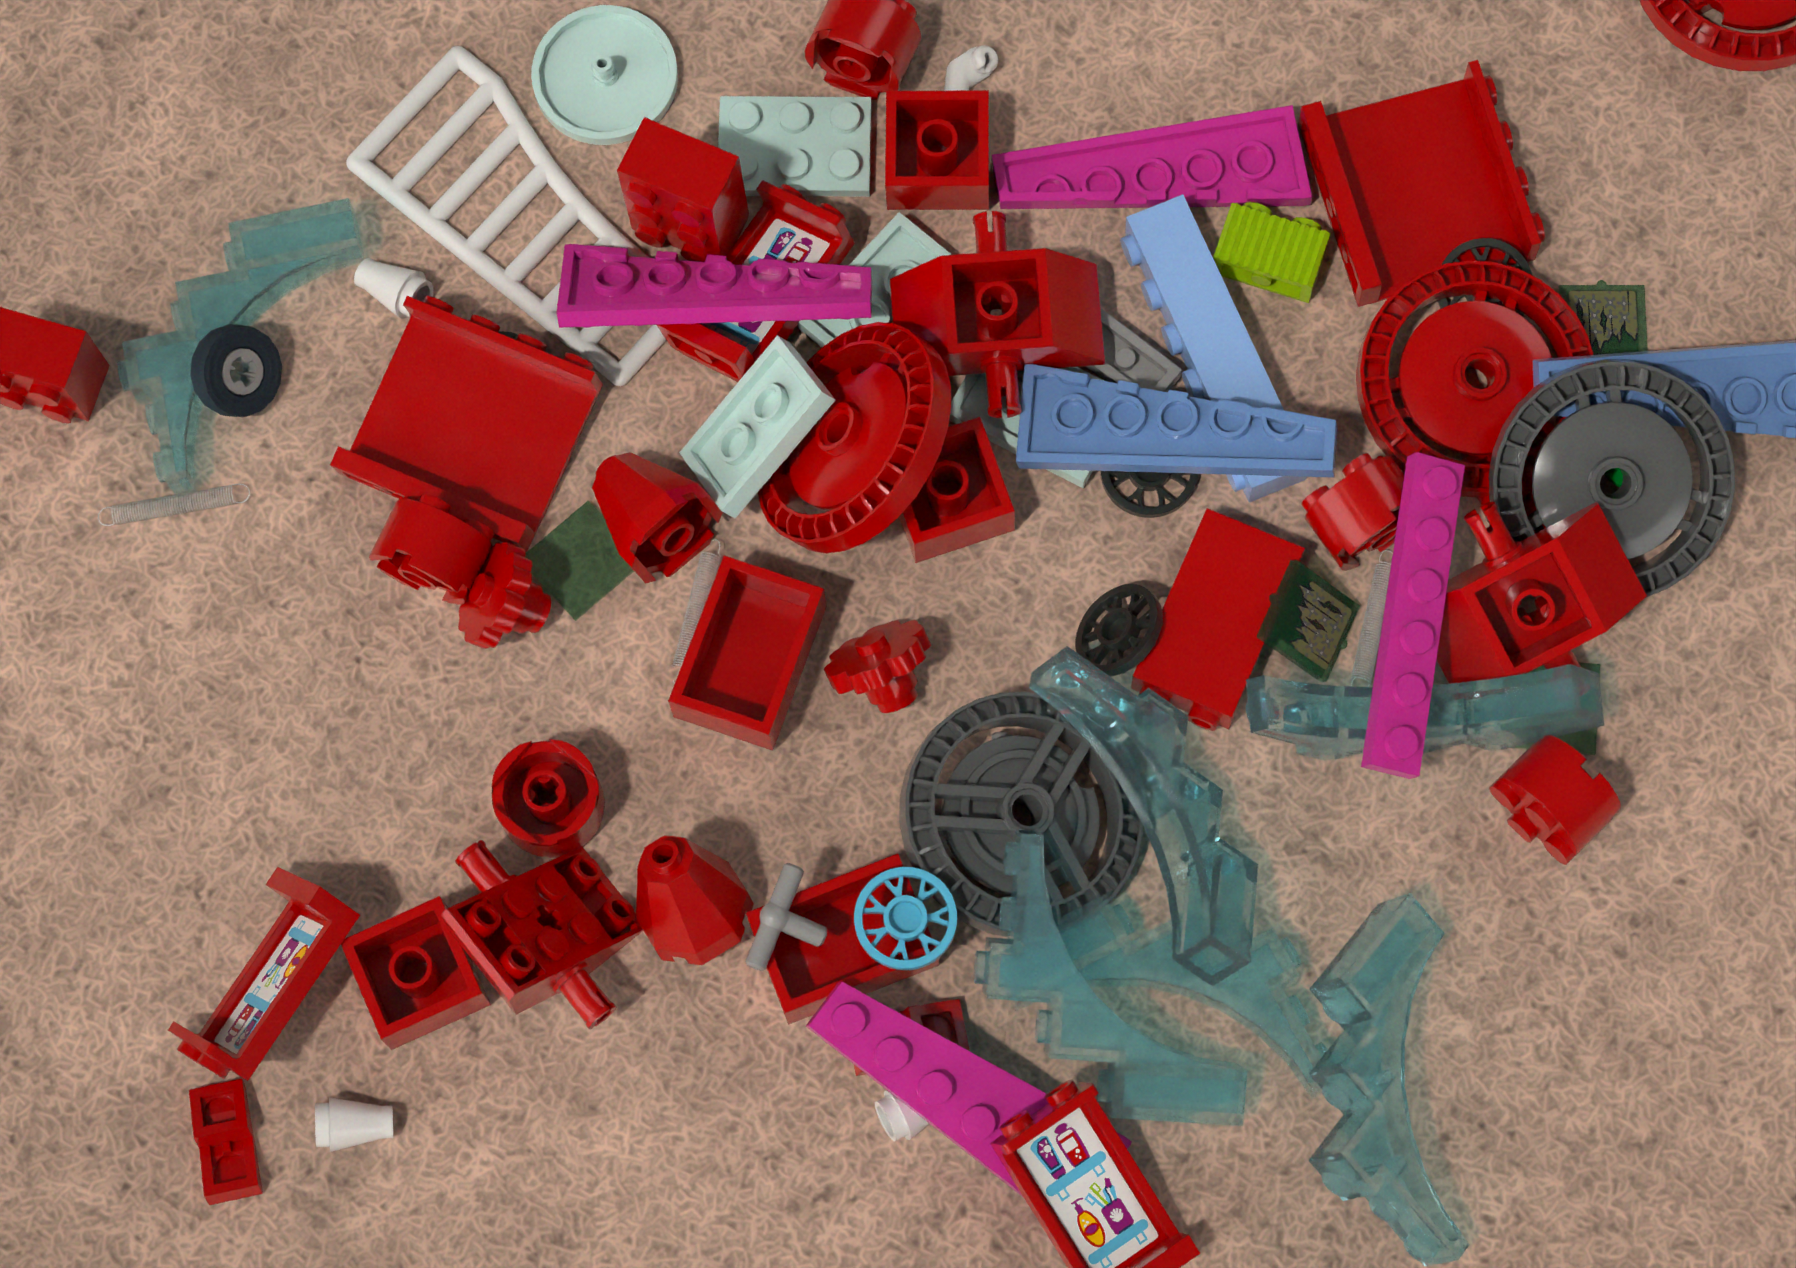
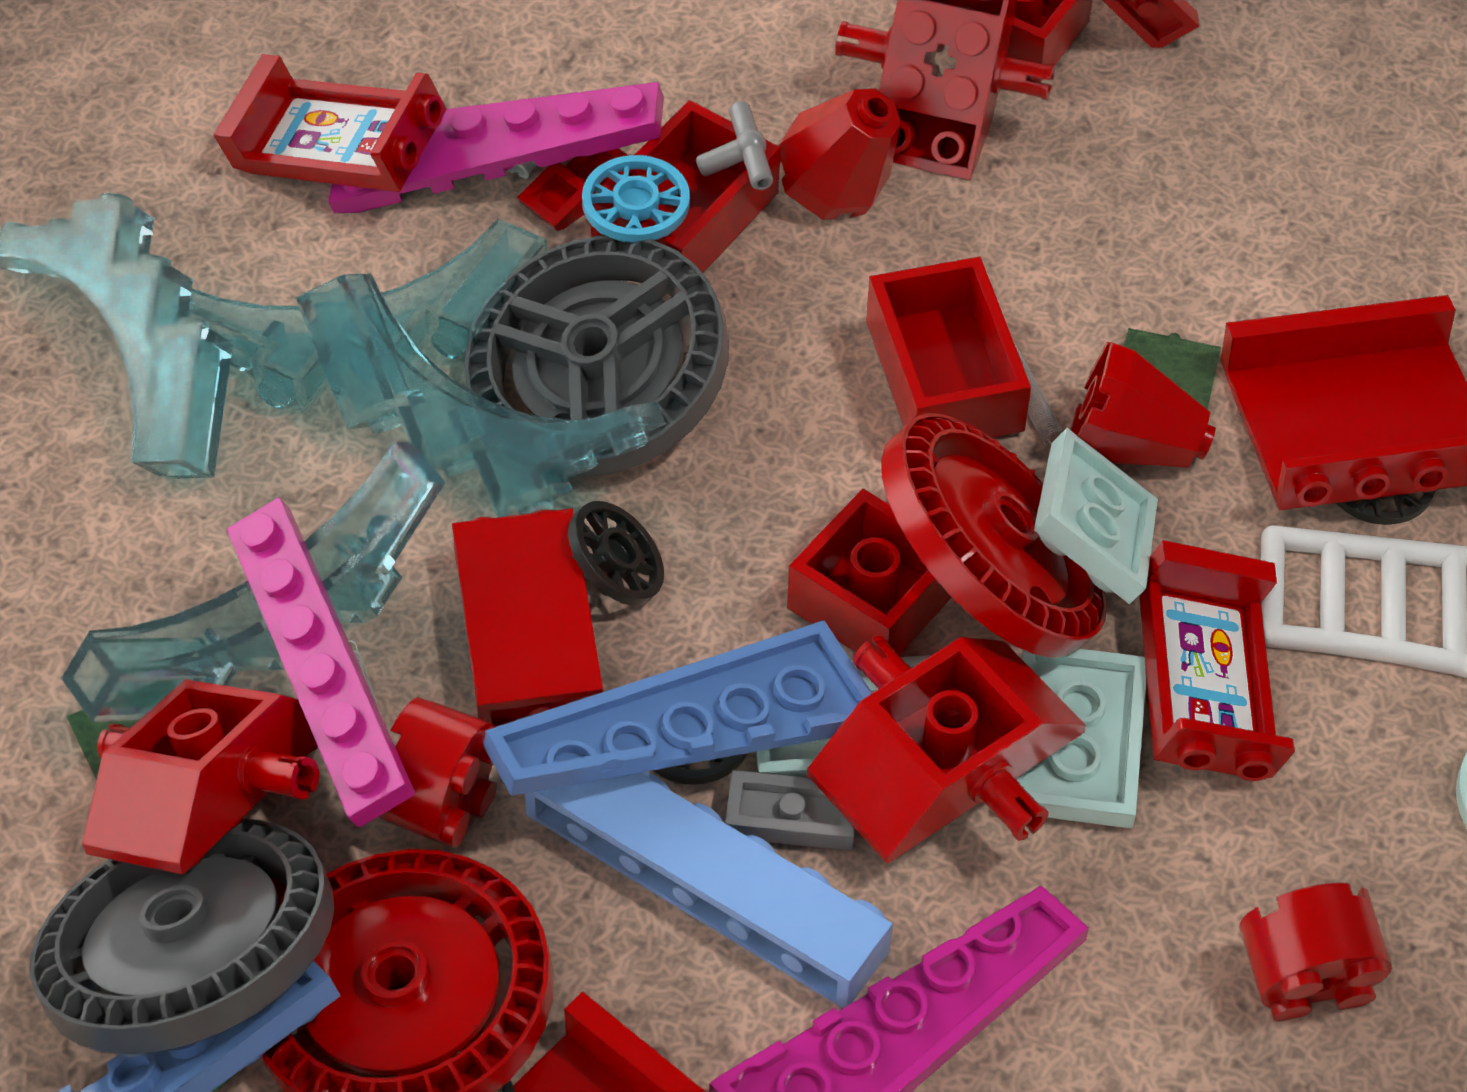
camera: 140 degrees right, 20 degrees down
(431, 547) = (1295, 268): red brick -> none
(503, 599) = (1198, 285): red plant -> none
(547, 769) = (1024, 169): red brick -> none
(621, 290) = (1285, 587): dark pink wing -> none
(682, 192) = (1353, 660): red piece -> none
(800, 142) = (1299, 832): light aqua plate -> none
(881, 664) = (823, 406): red plant -> none
(937, 150) = (1146, 888): red brick -> none
(970, 68) = (1192, 1011): white arm -> none
(1033, 965) = (350, 229): clear light blue arch -> none
(1271, 250) = (715, 1001): lime brick -> none
(1308, 621) = (434, 655): piece -> none
(1555, 798) = (67, 600): red brick -> none

